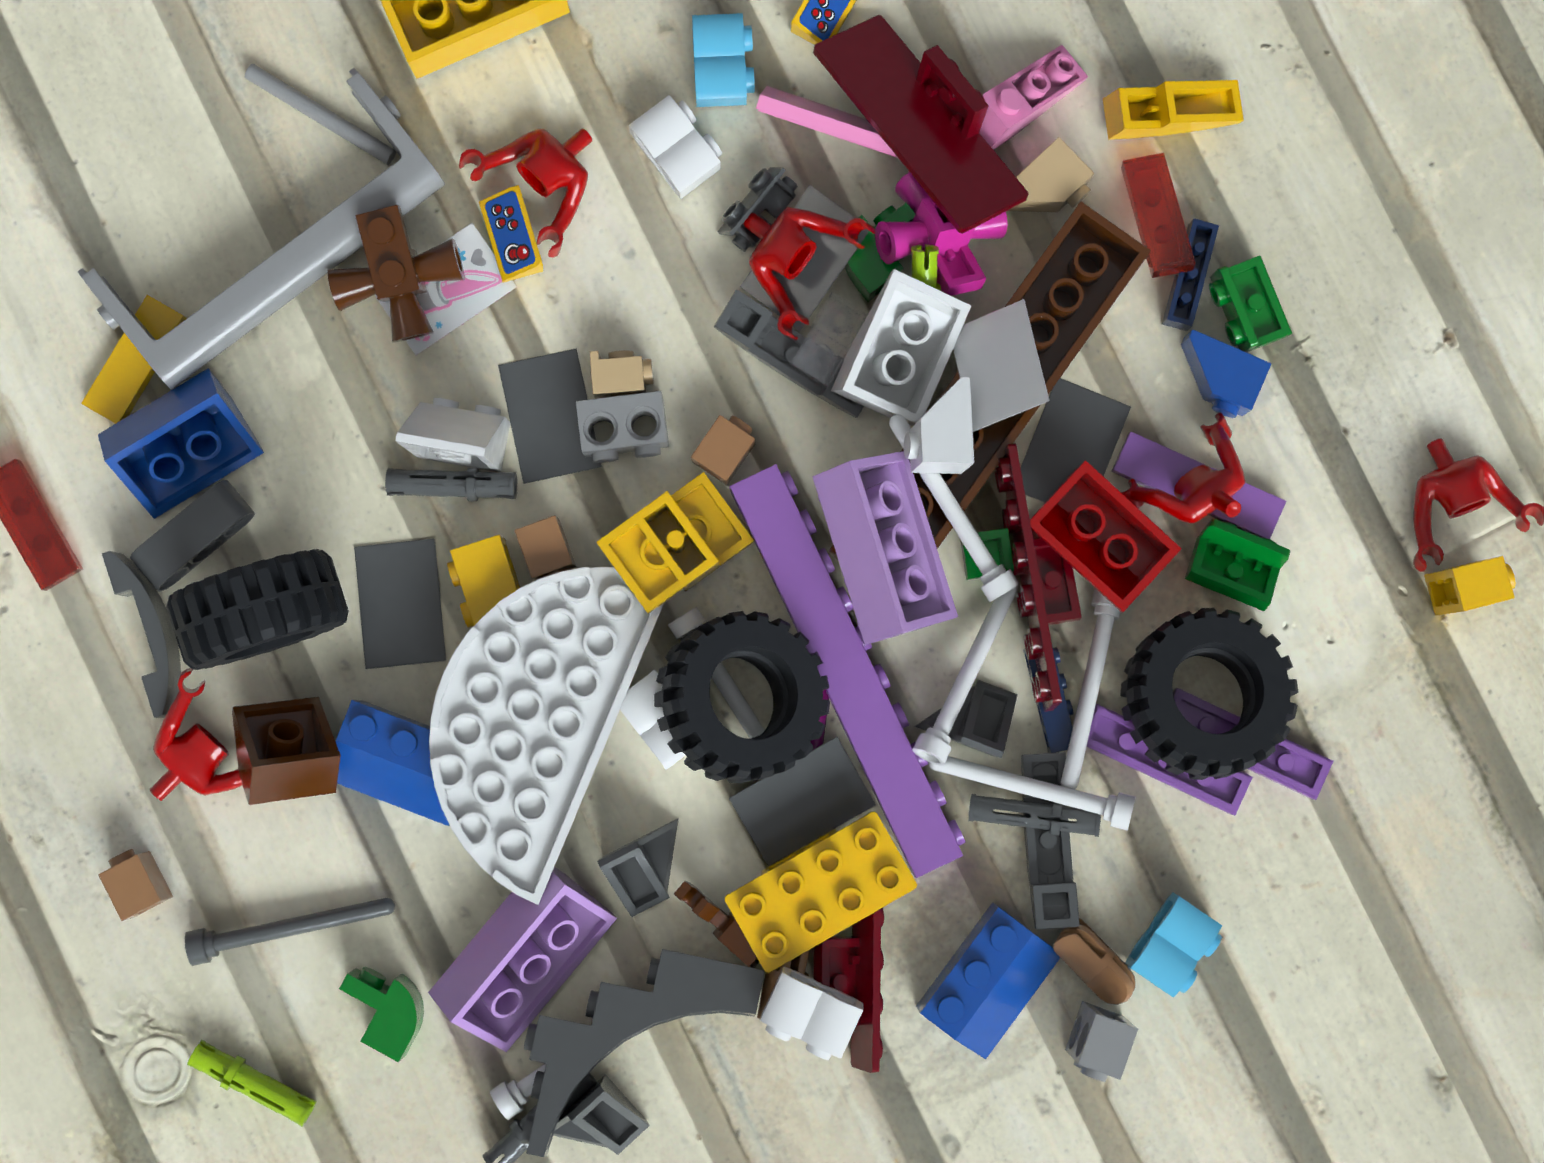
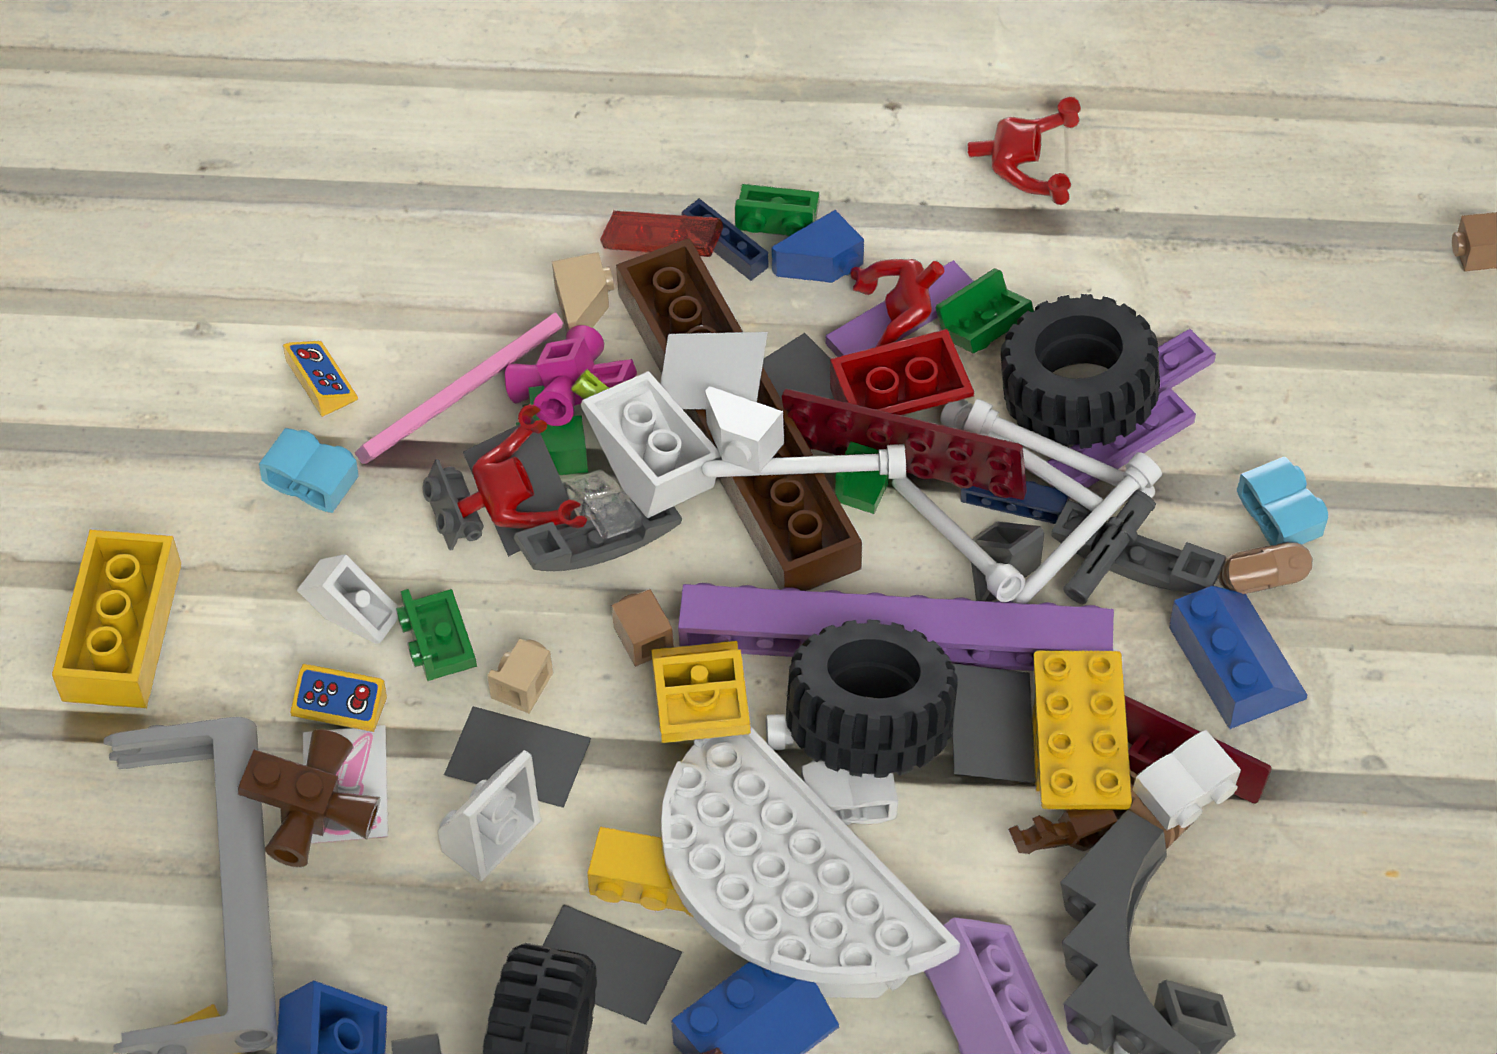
camera: 55 degrees left, 30 degrees down
(320, 114) = (117, 800): light grey bar -> none
(451, 483) = (535, 843): dark grey pin -> none
(545, 547) = (635, 804): medium nougat brick -> none
(546, 169) = (303, 641): red piece -> none
(609, 181) = (349, 598): none -> white slope
(617, 276) = (437, 632): none -> green bracket
(622, 413) = (559, 690): light grey brick -> none
(642, 869) = (978, 883): dark grey slope -> none
(676, 146) = (364, 534): white brick -> none
(884, 546) = (808, 523): lavender slope -> none
(925, 118) = (466, 333): dark red bracket -> none
(1029, 95) = (501, 281): bright pink slope -> none
(1100, 1042) = (1335, 584): light grey brick -> none
(1105, 635) = (986, 420): none -> white piece
(1172, 108) = (581, 189): yellow slope -> none
(1470, 586) = (1099, 167): yellow brick -> none

